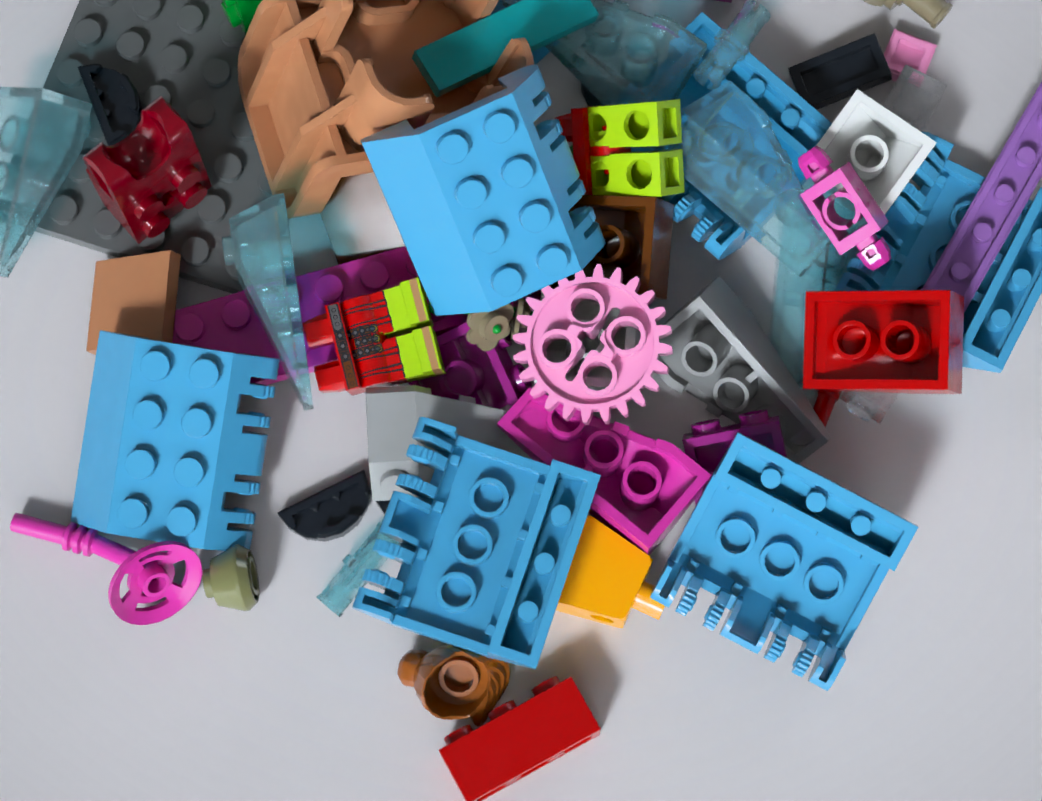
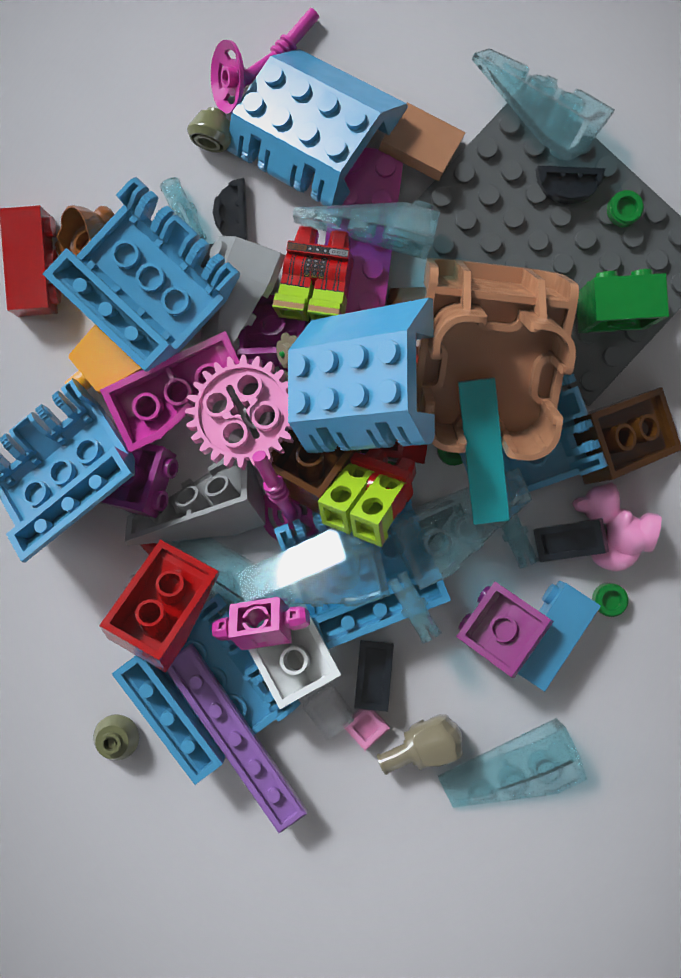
camera: 120 degrees right, 15 degrees up
(117, 25) = (625, 208): none -> green tile
(150, 172) = (497, 169): dark red brick -> none
(680, 263) = (277, 498): none -> dark pink dish

